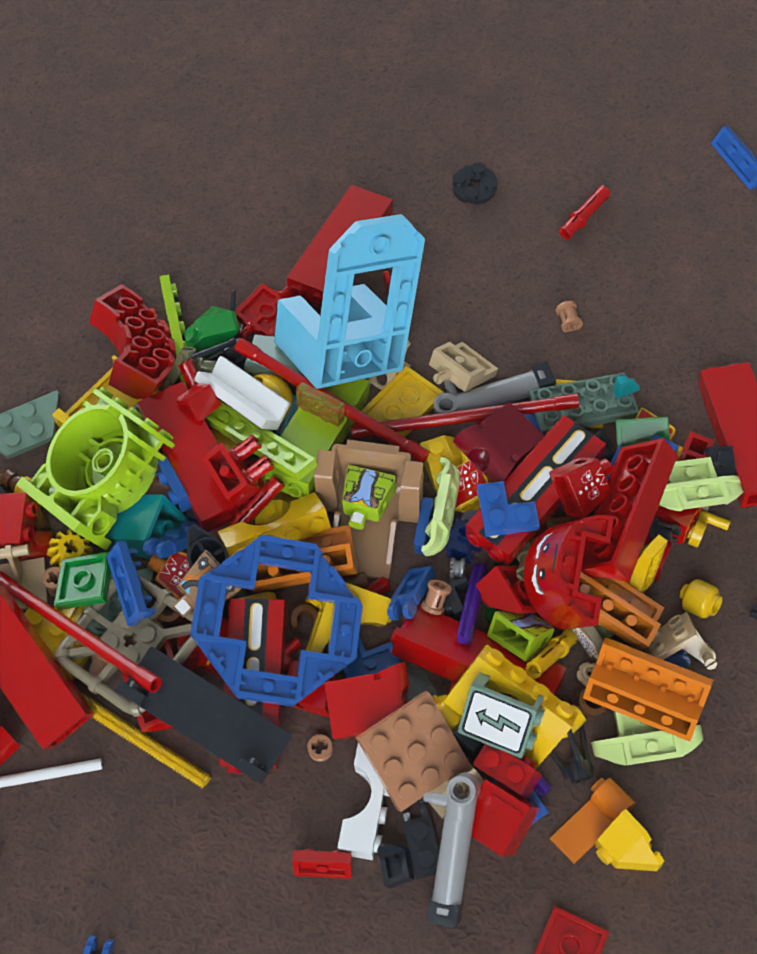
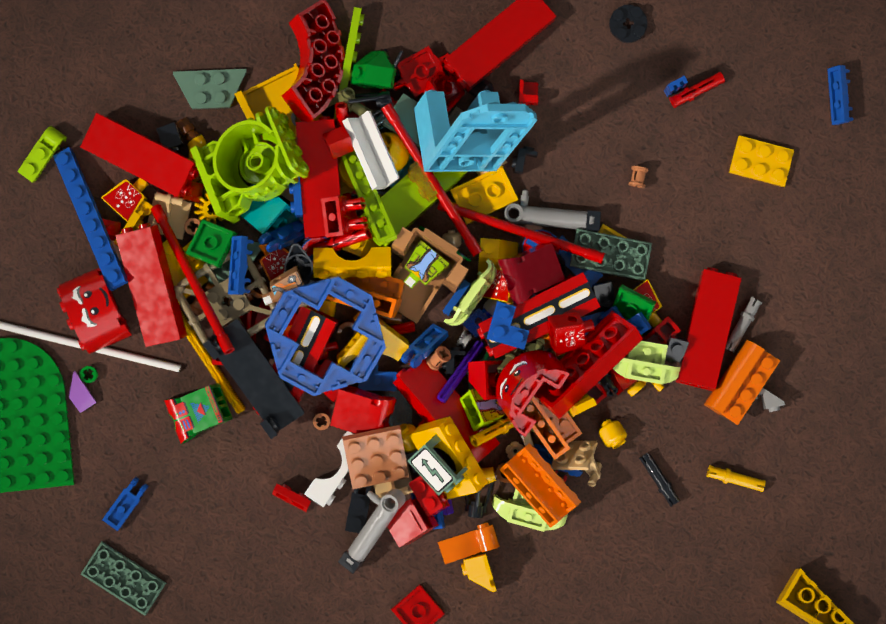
camera: 20 degrees right, 25 degrees up
(146, 803) = (198, 411): none -> green piece
(395, 864) = (336, 517): black plate -> none
(425, 346) = (518, 162): none -> black bracket
(461, 366) = (540, 186): tan plate -> none
(560, 210) = (674, 86): none -> blue tile
(625, 386) = (643, 260): teal tile -> none
(696, 250) = (761, 161): none -> yellow plate

